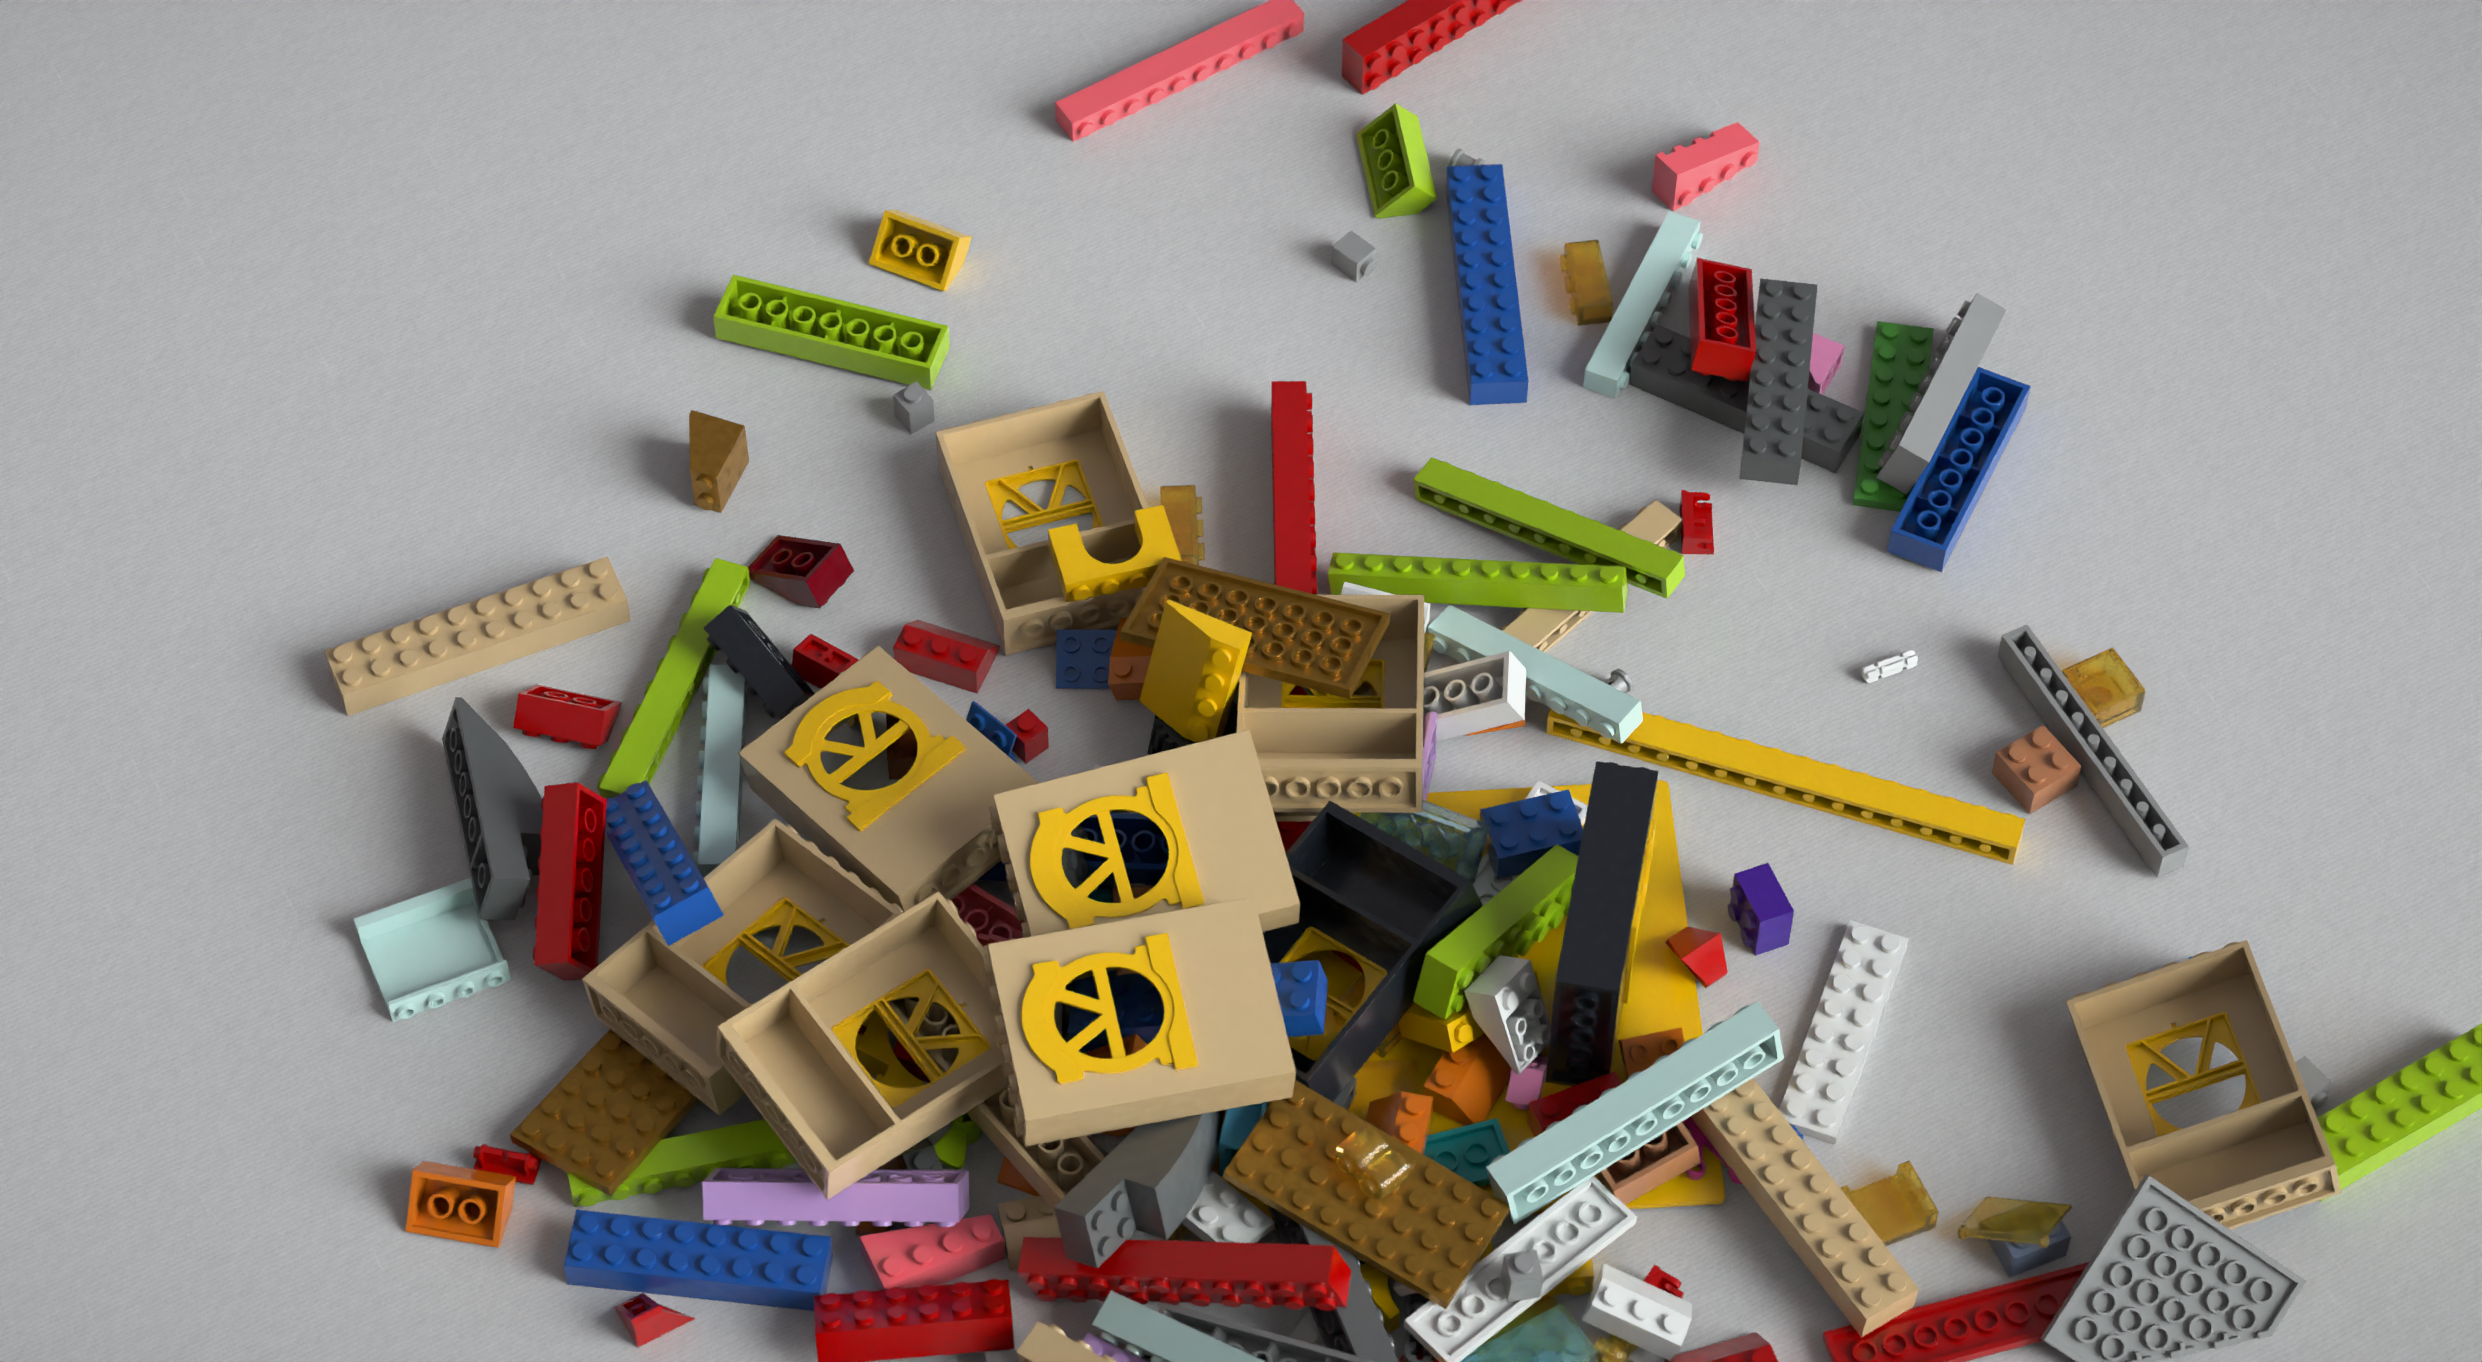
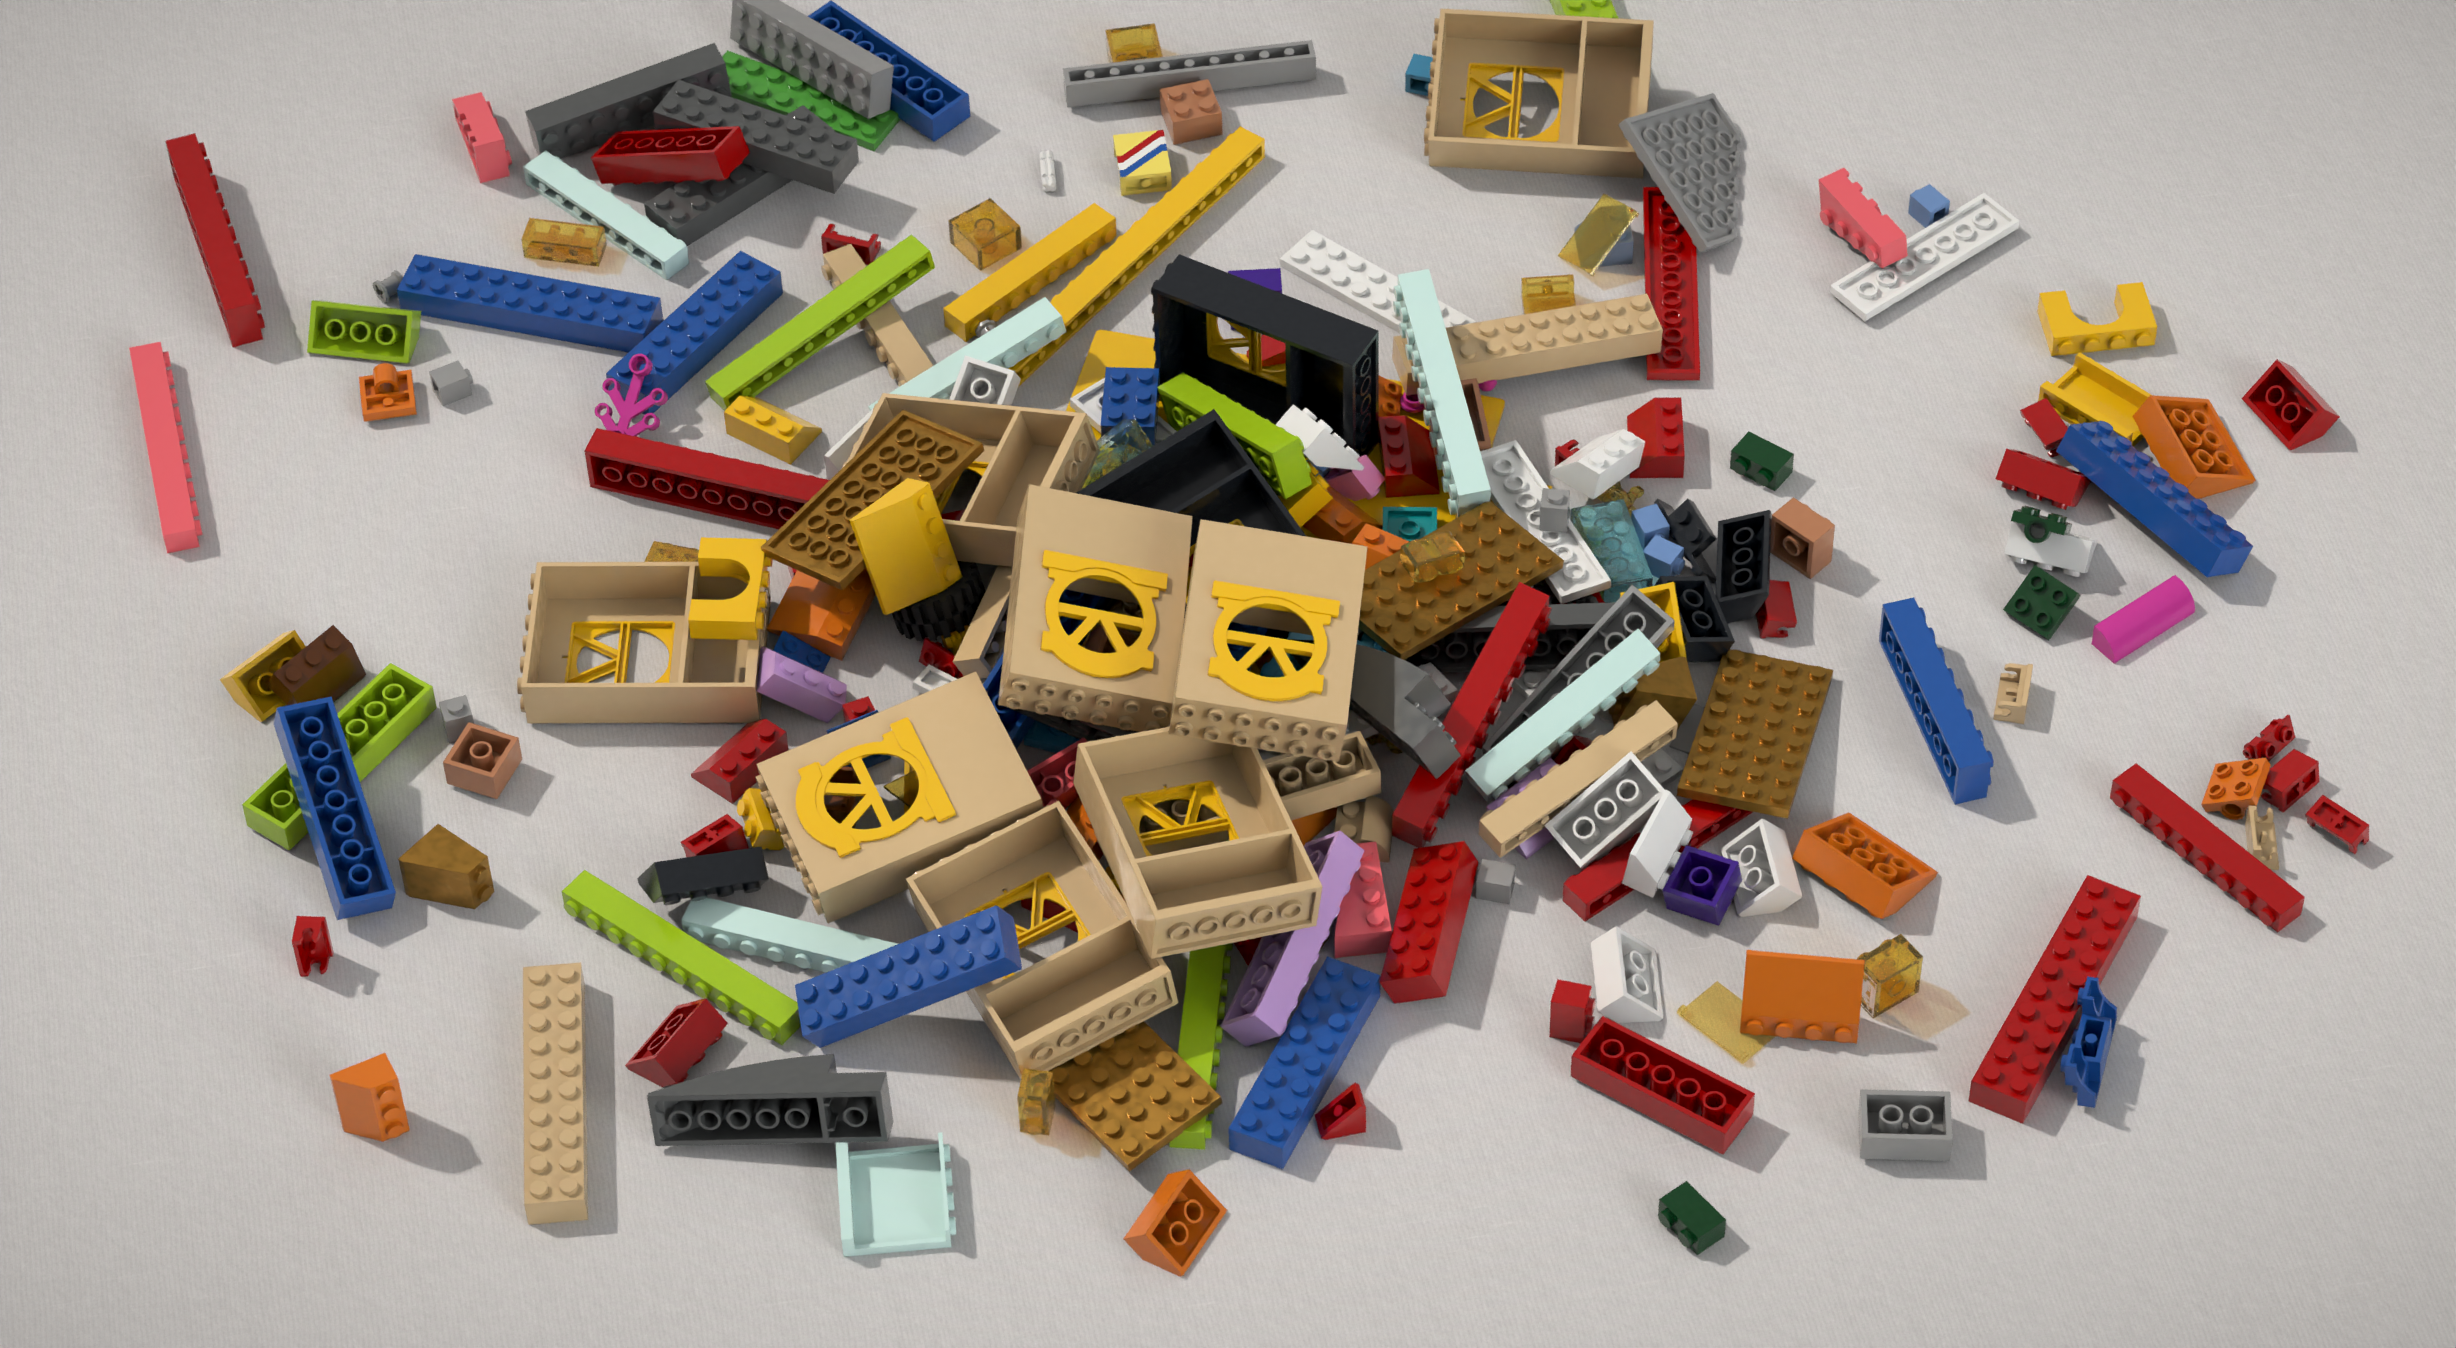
camera: 70 degrees left, 5 degrees down
(410, 493) = (370, 1099): none -> orange slope
(507, 1162) = (1145, 1183): red hinge -> none
(565, 1031) = (1036, 1102): none -> clear yellow brick
(570, 881) = (890, 1051): red brick -> none
(588, 386) = (311, 944): none -> red hinge
(741, 340) = (334, 808): none -> blue brick
(802, 569) = (597, 839): dark red slope -> none
(863, 443) = (482, 760): none -> nougat brick
(924, 280) = (319, 671): none -> reddish brown slope
(1046, 663) = (799, 686): none -> lavender slope
(1319, 212) = (387, 393): none -> orange plate
(1338, 415) = (630, 407): none -> dark pink plant
(1408, 525) = (769, 428): none -> yellow slope
(1485, 581) = (859, 375): lime brick -> none
(1505, 430) = (701, 326): none -> blue brick
(1725, 694) = (1030, 271): none -> yellow brick
(1759, 635) = (985, 234): none -> clear yellow brick
(1781, 253) = (622, 103): none -> dark grey brick
(1936, 744) = (1142, 162): none -> light yellow panel

